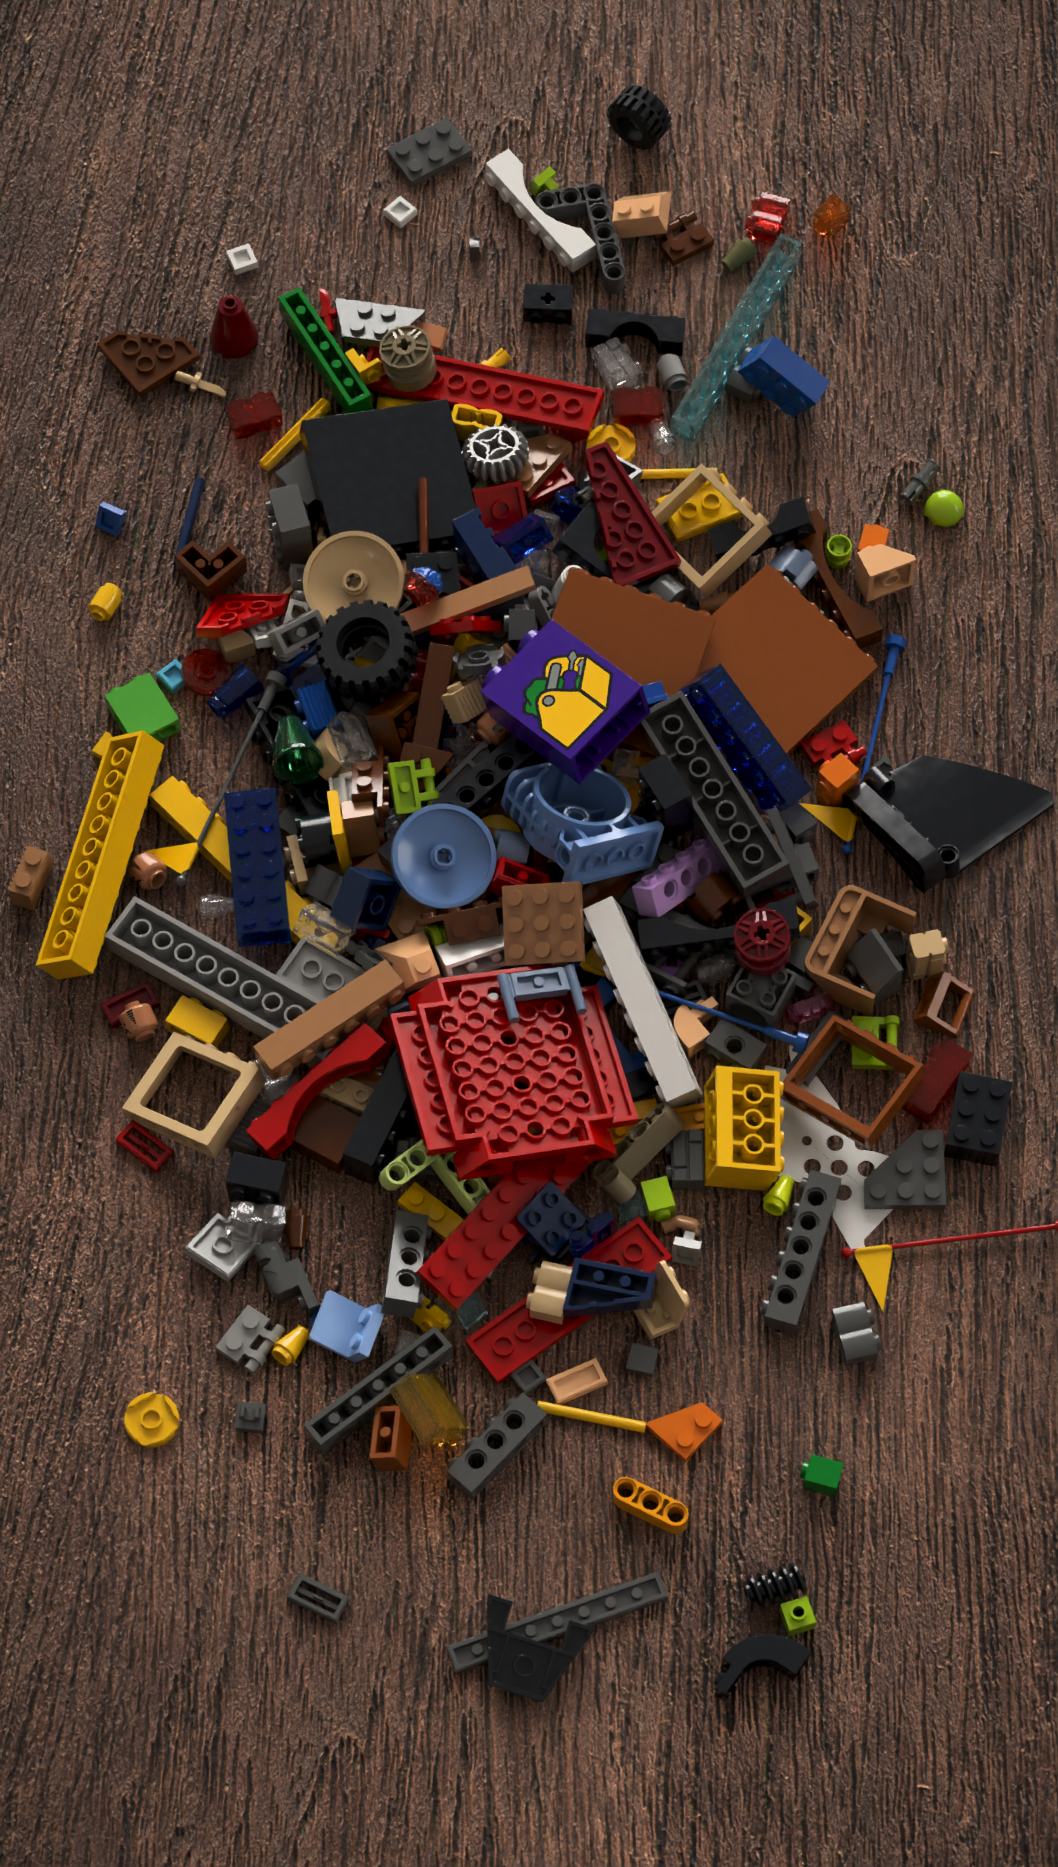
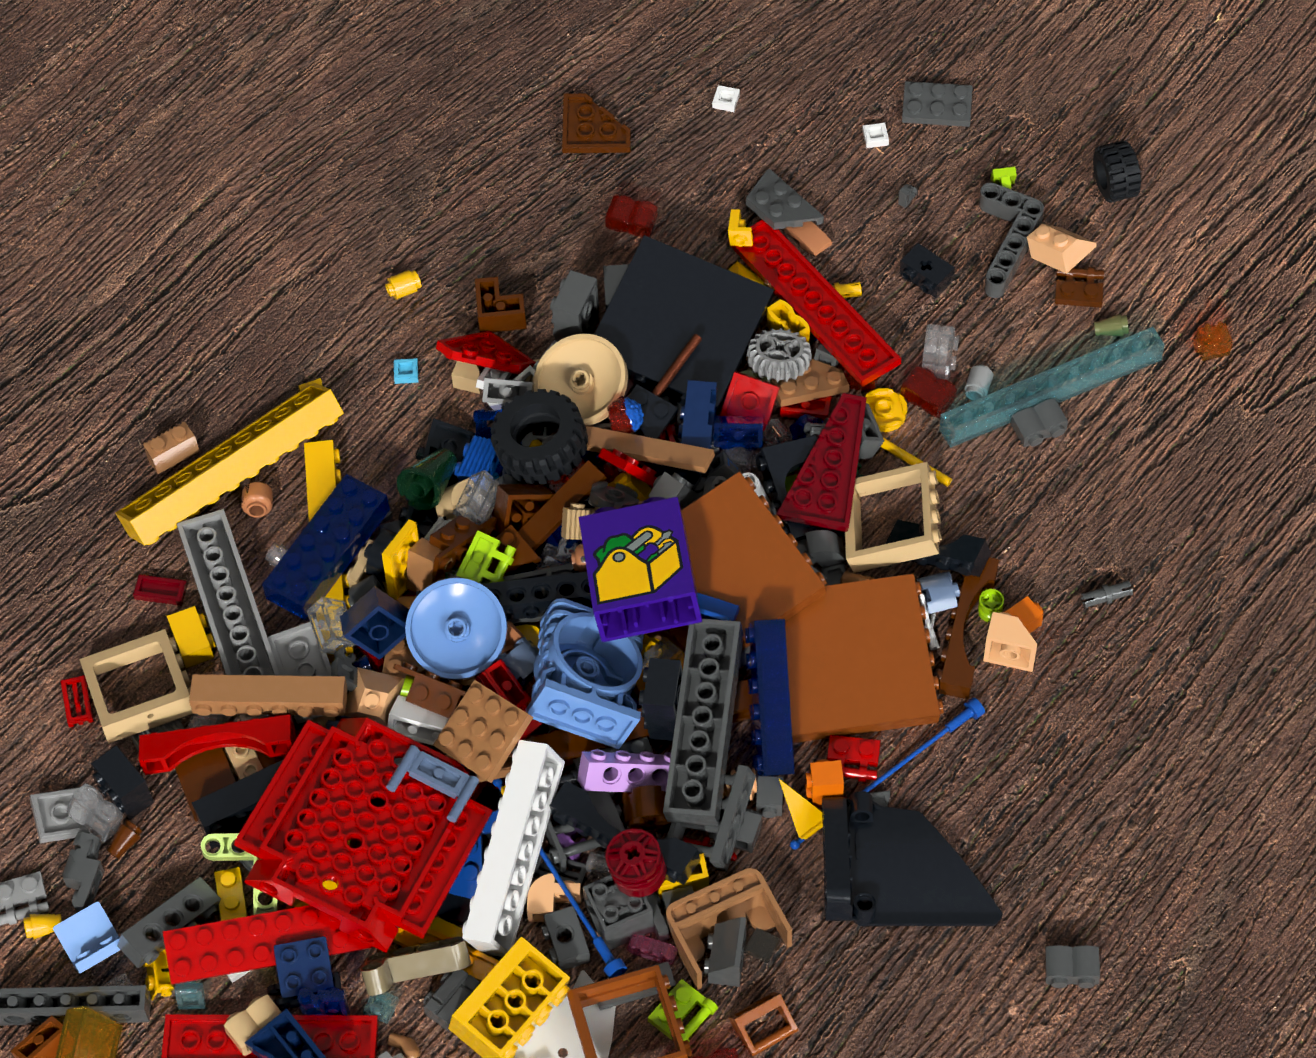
camera: 40 degrees right, 5 degrees down
(110, 518) = (461, 226): blue tile -> none
(138, 1021) = (150, 604): nougat head -> none
(142, 707) = (358, 380): bright green brick -> none
(182, 856) = (286, 502): dark grey piece -> none
(190, 514) = (526, 258): dark blue bar -> none
(196, 382) = (612, 167): tan piece -> none
(205, 671) = (429, 382): clear red tile -> none
(233, 329) = (670, 143): dark red cone -> none
(234, 691) = (440, 407): clear blue plant -> none
(293, 436) = (627, 254): yellow axle -> none
(324, 352) = (721, 201): green brick -> none
(327, 314) = (752, 177): red piece -> none
(408, 358) = (773, 242): dark tan wheel -> none
(569, 243) = (983, 233): white arch -> none
(658, 1199) = (403, 1013): lime brick -> none
(662, 438) = (927, 428): clear cone -> none
(664, 332) = (1000, 350): black arch -> none
(701, 512) = (906, 504): yellow tile -> none
(768, 217) = (1161, 311): clear red brick -> none
(783, 376) = (1055, 438): blue brick -> none
(926, 954) = (777, 970): tan brick -> none
(944, 508) = (1108, 628): lime hair -> none

